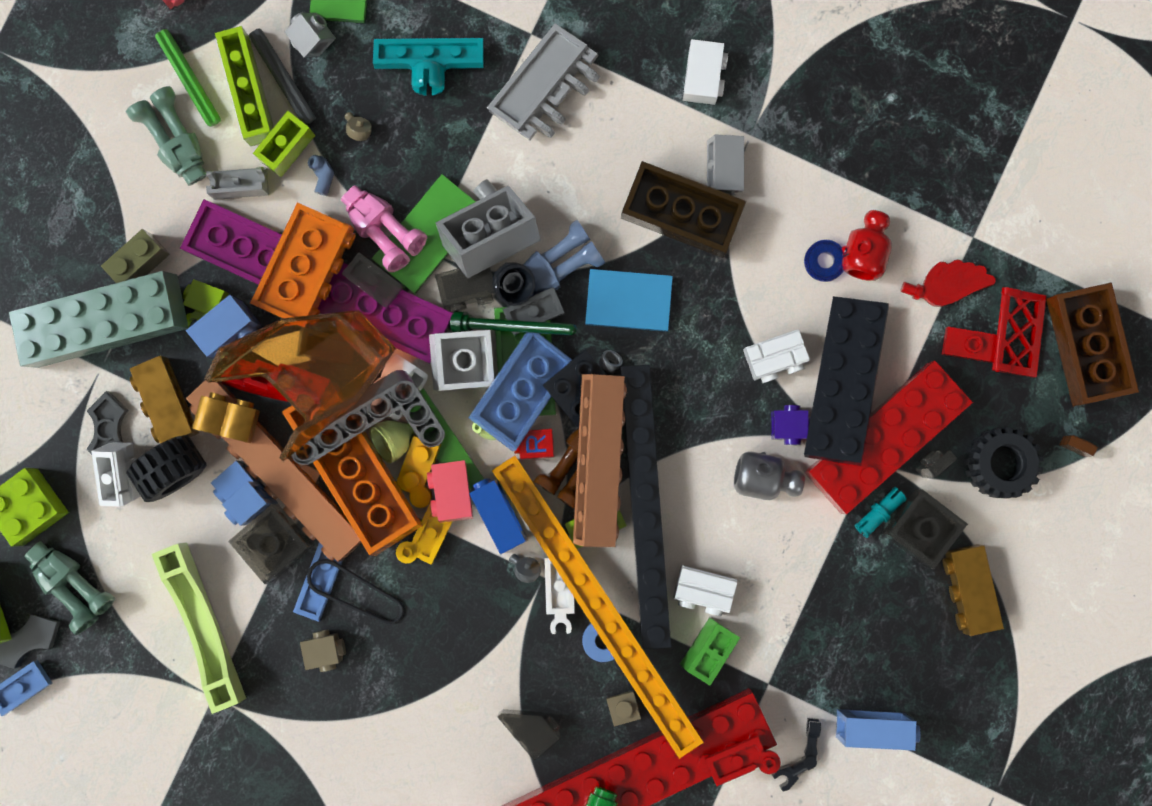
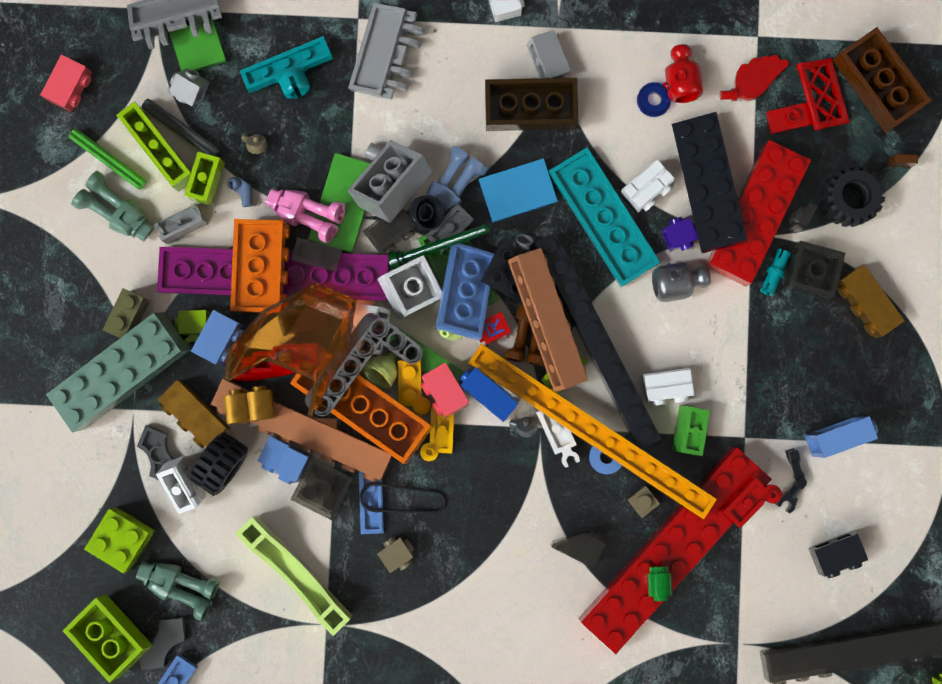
camera: 30 degrees left, 0 degrees up
(712, 370) = (604, 217): none -> teal plate

